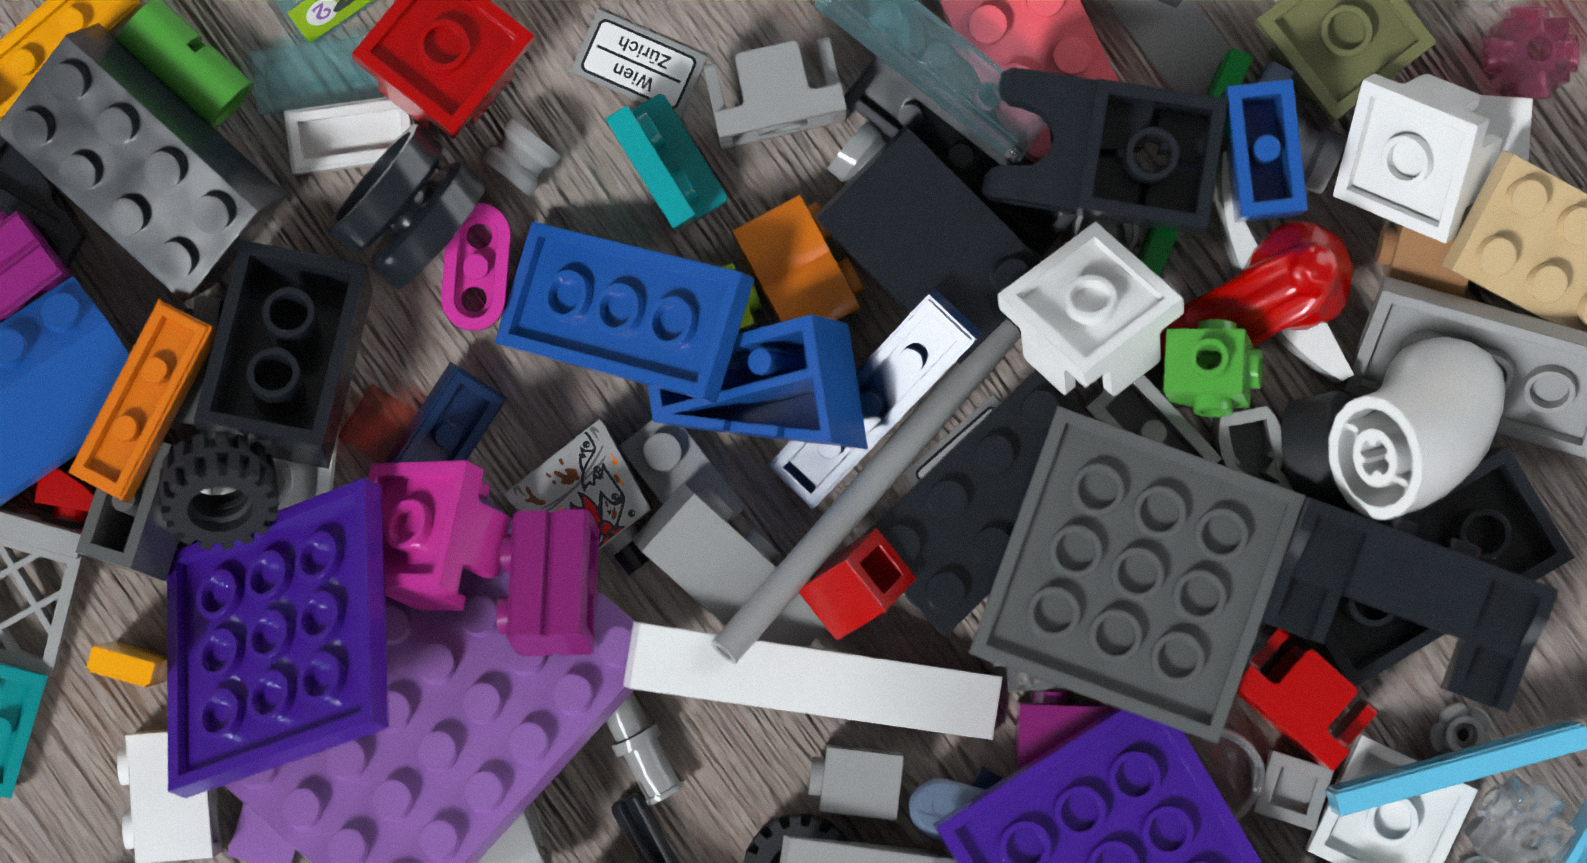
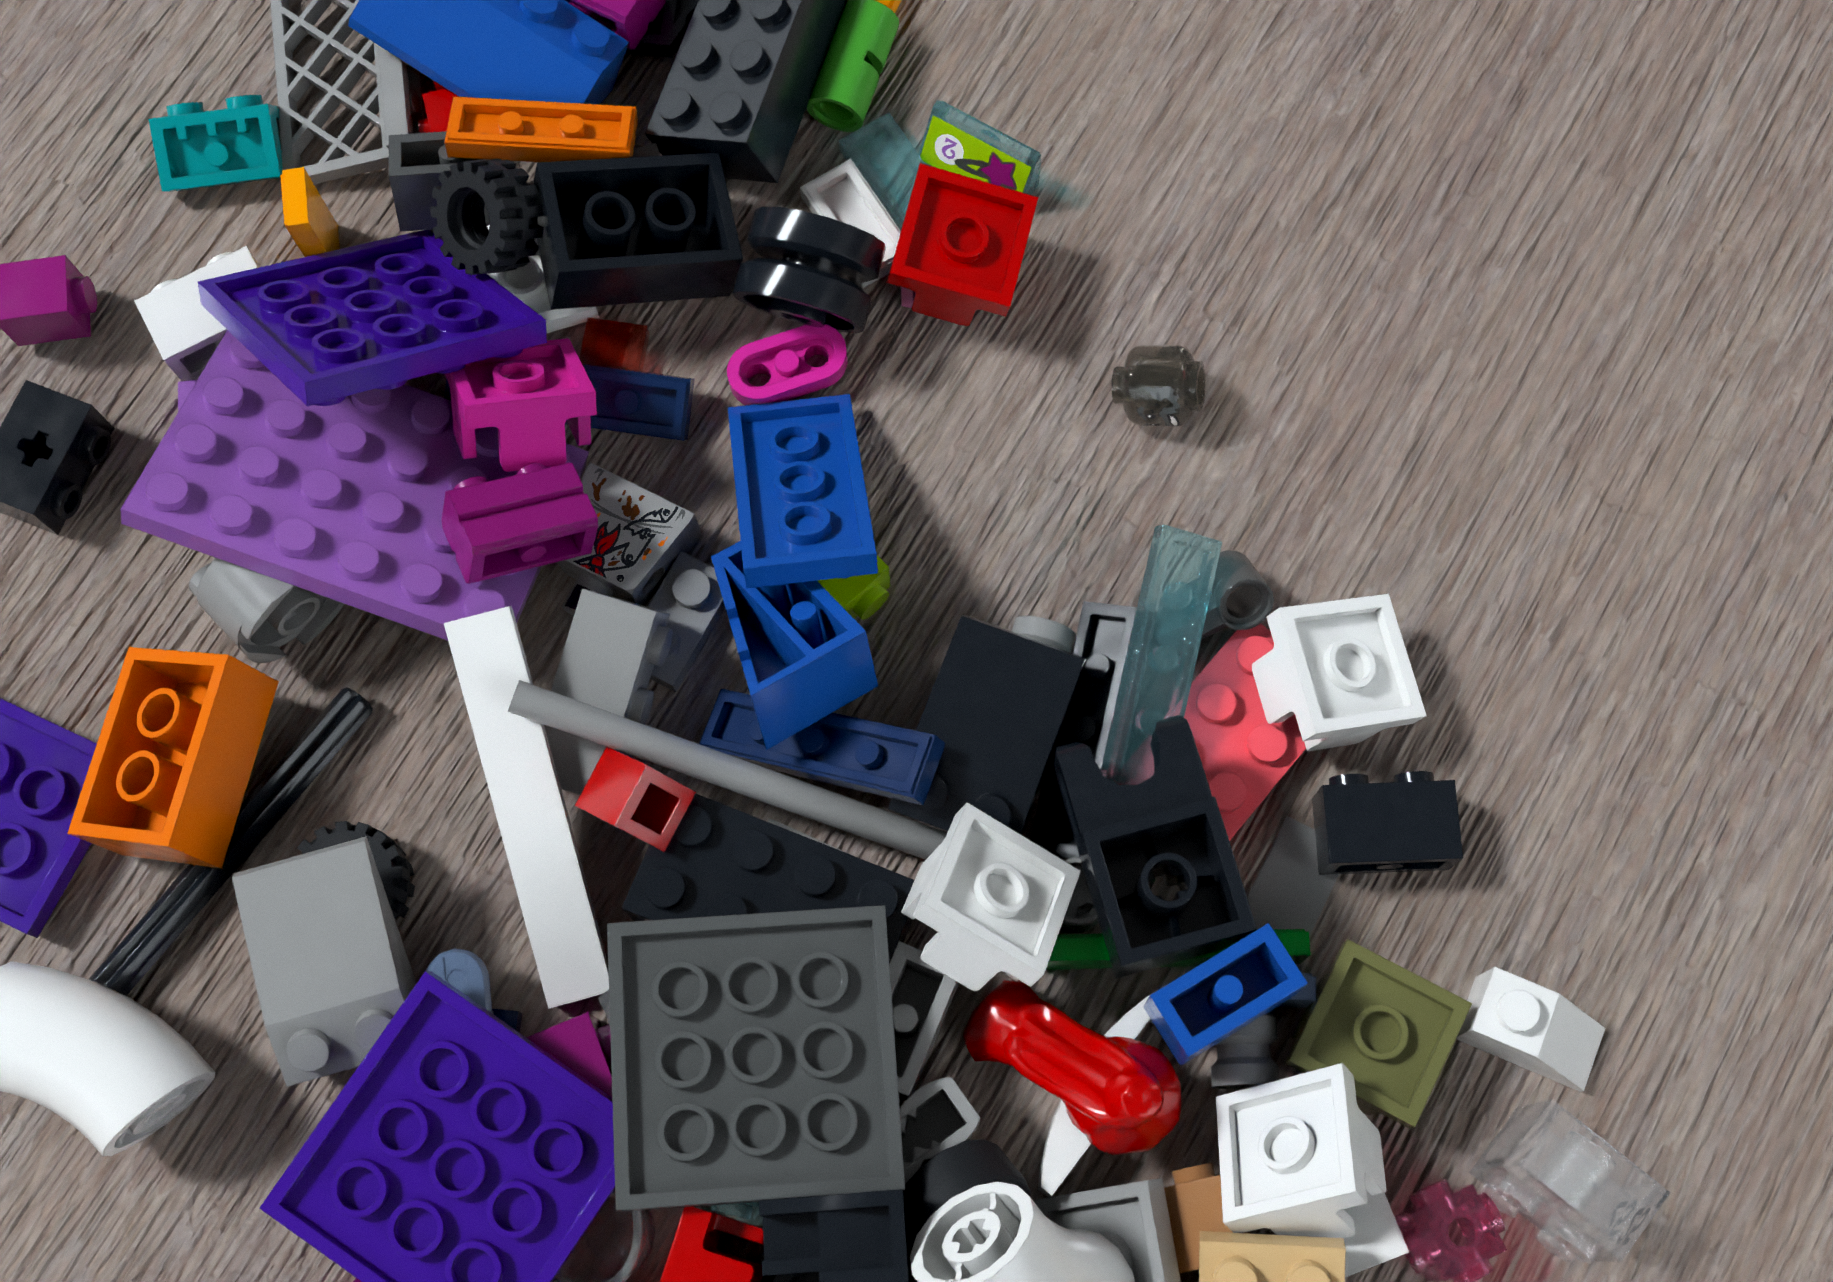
camera: 70 degrees right, 15 degrees down
(520, 157) = (900, 358): light grey wheel -> none
(637, 62) = (1032, 428): sticker -> none
(640, 746) = (411, 689): light grey pin -> none
(667, 161) = (952, 477): teal bracket -> none
(776, 95) = (1050, 533): light grey panel -> none
(795, 265) = (914, 630): orange brick -> none
(857, 781) = (456, 898): light grey brick -> none
(1211, 368) = (990, 1042): bright green brick -> none

